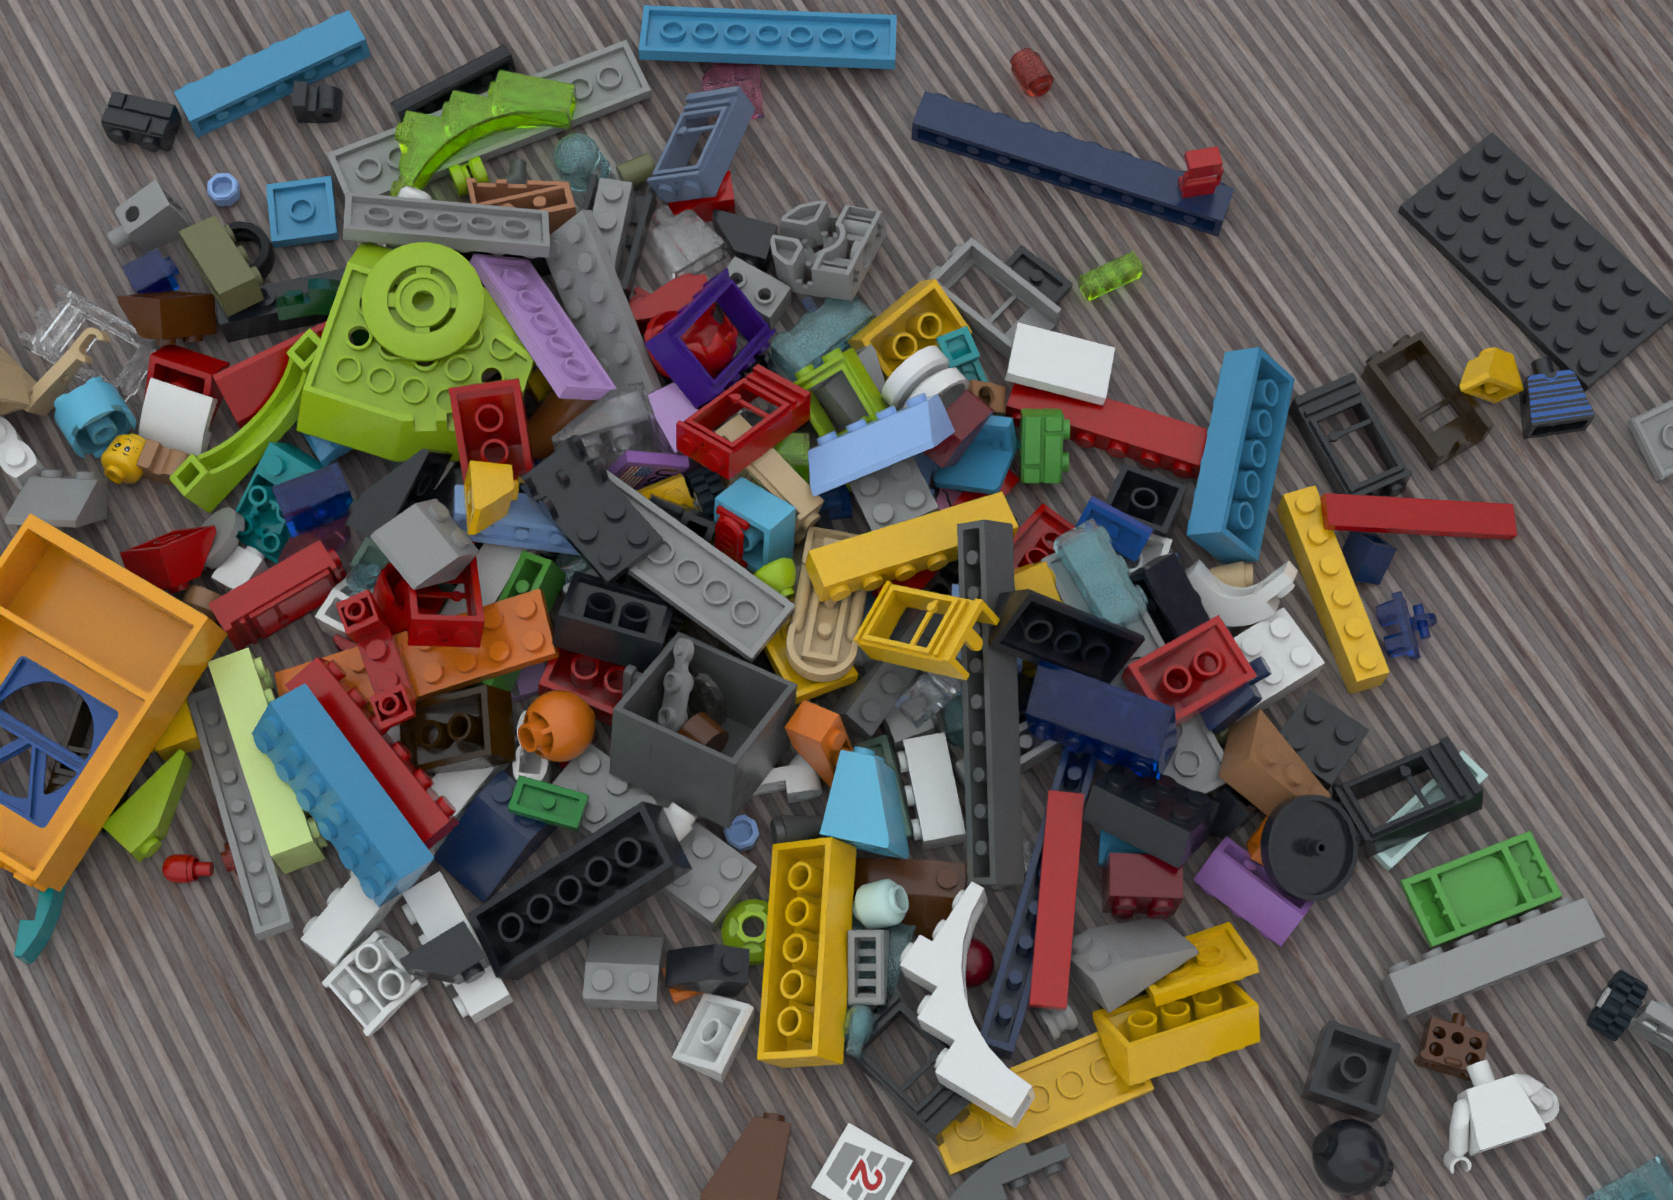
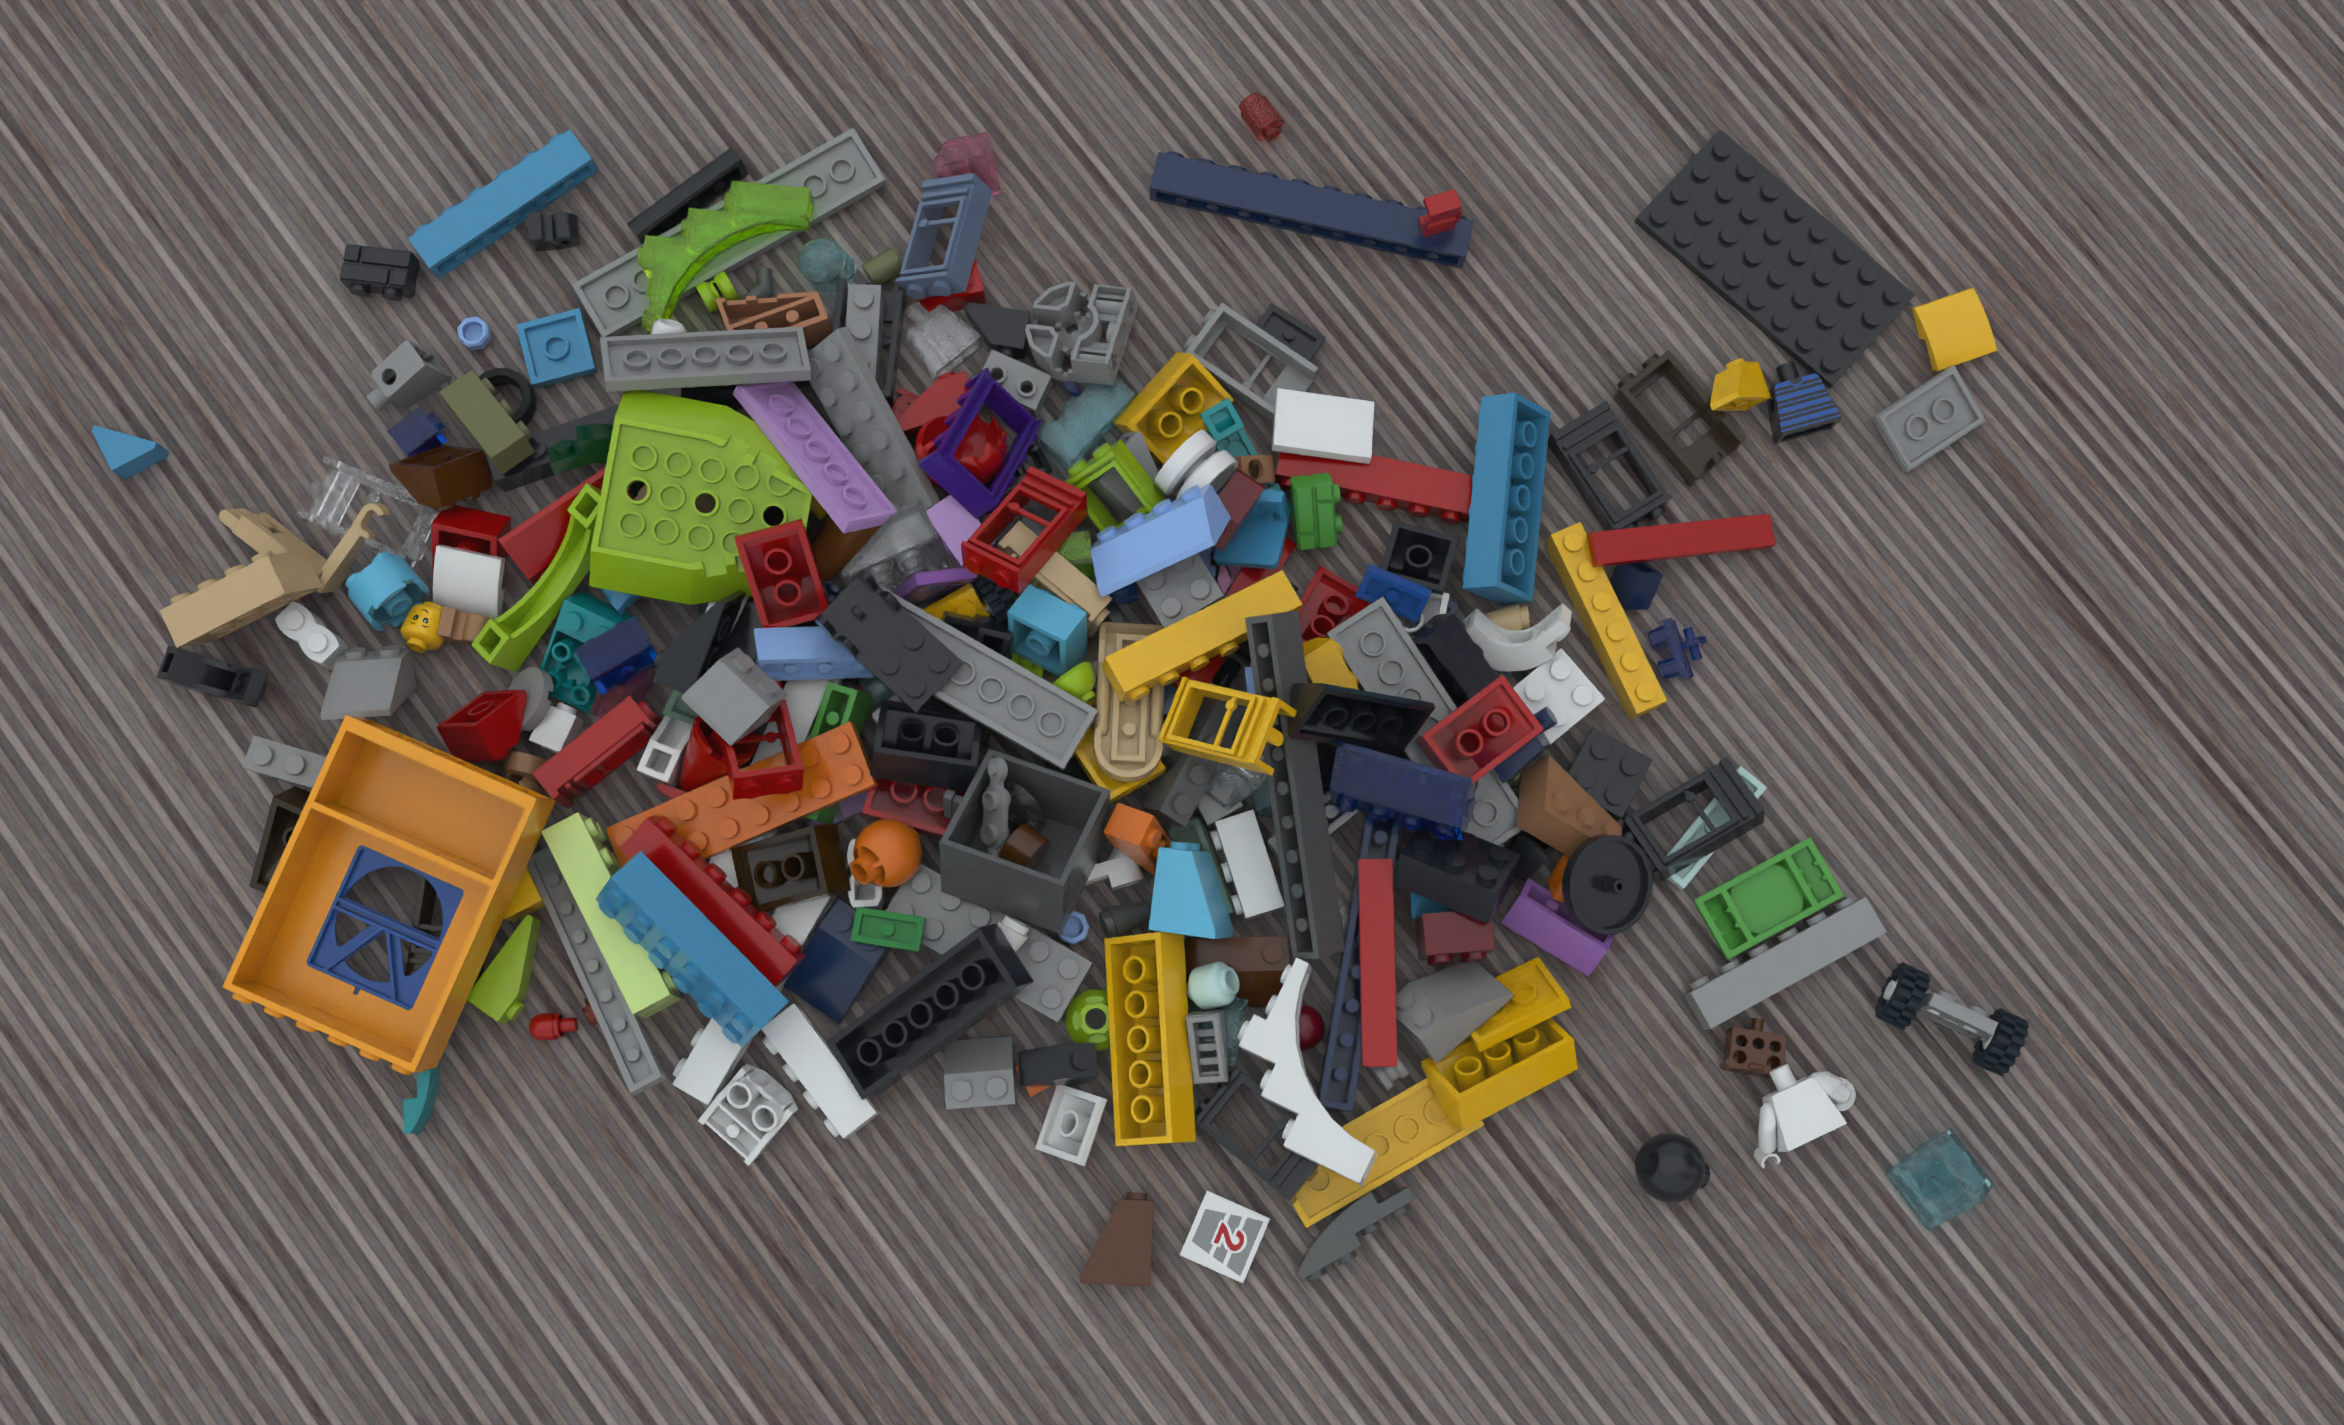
camera: 10 degrees left, 10 degrees up
(362, 576) = (677, 727): clear light blue cylinder -> none
(382, 658) = (726, 841): red slope -> none
(403, 327) = (683, 479): lime piece -> none
(448, 957) = (816, 1087): black slope -> none
(488, 494) = (787, 637): yellow slope -> none
(729, 535) = (1026, 646): red piece -> none
(768, 37) = (994, 108): dark azure plate -> none
(858, 1028) = (1206, 1106): clear light blue cylinder -> none
(1100, 574) = (1386, 645): clear light blue brick -> none
(1110, 276) = (1361, 323): clear neon green piece -> none
(1351, 1071) = (1663, 1087): black brick -> none

